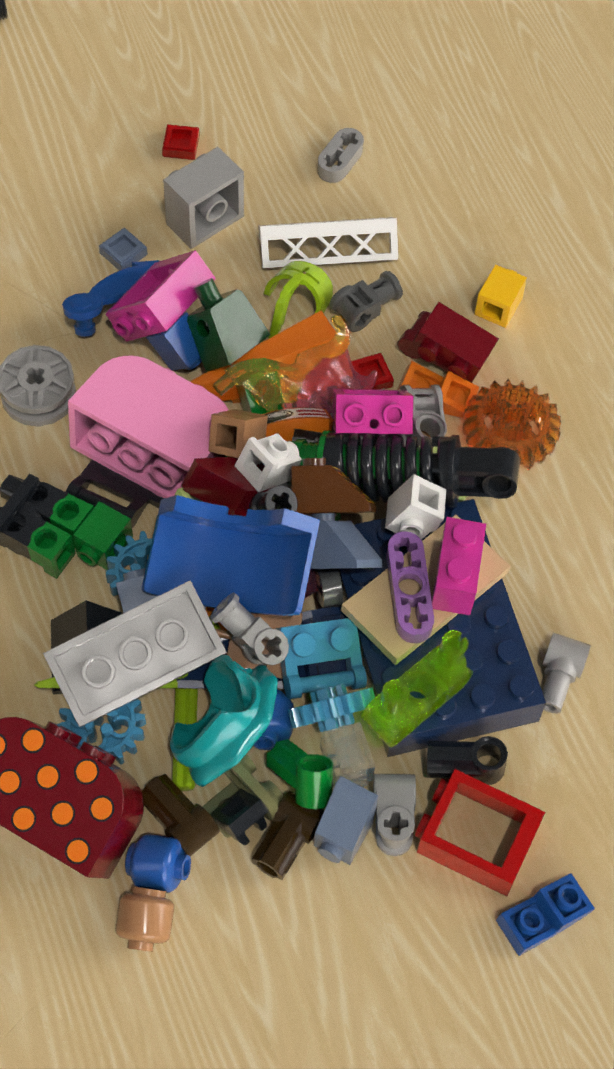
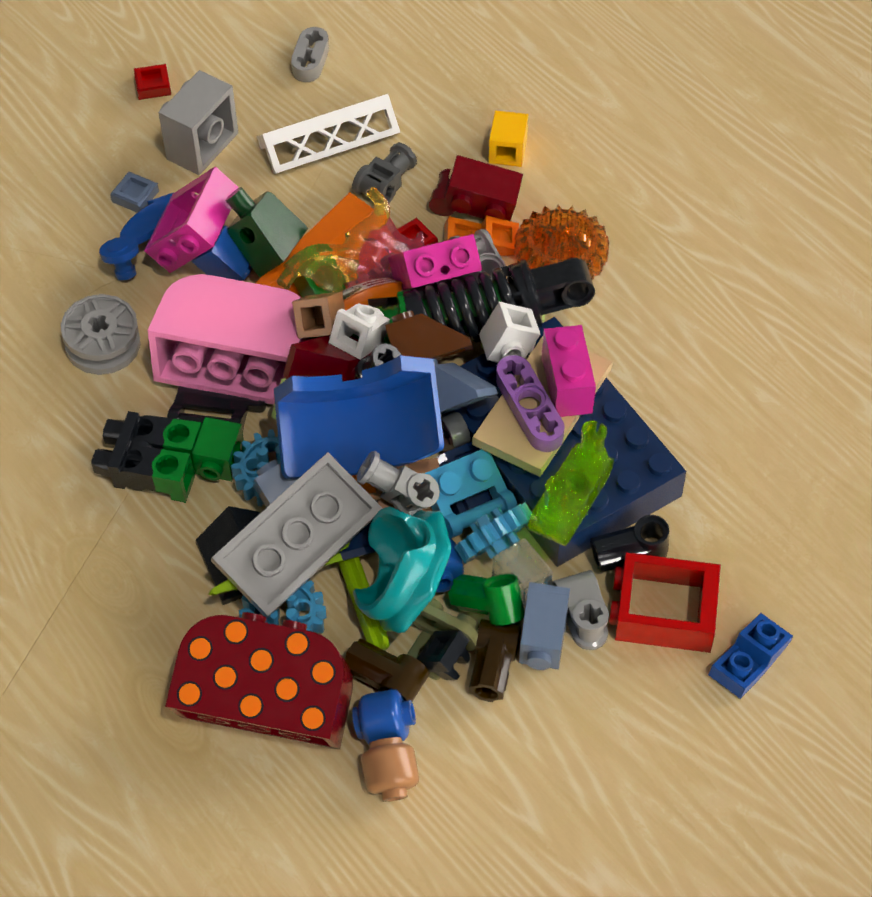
camera: 15 degrees left, 5 degrees down
(315, 280) = (330, 168): lime helmet -> none
(563, 663) = (687, 437): light grey pin -> none

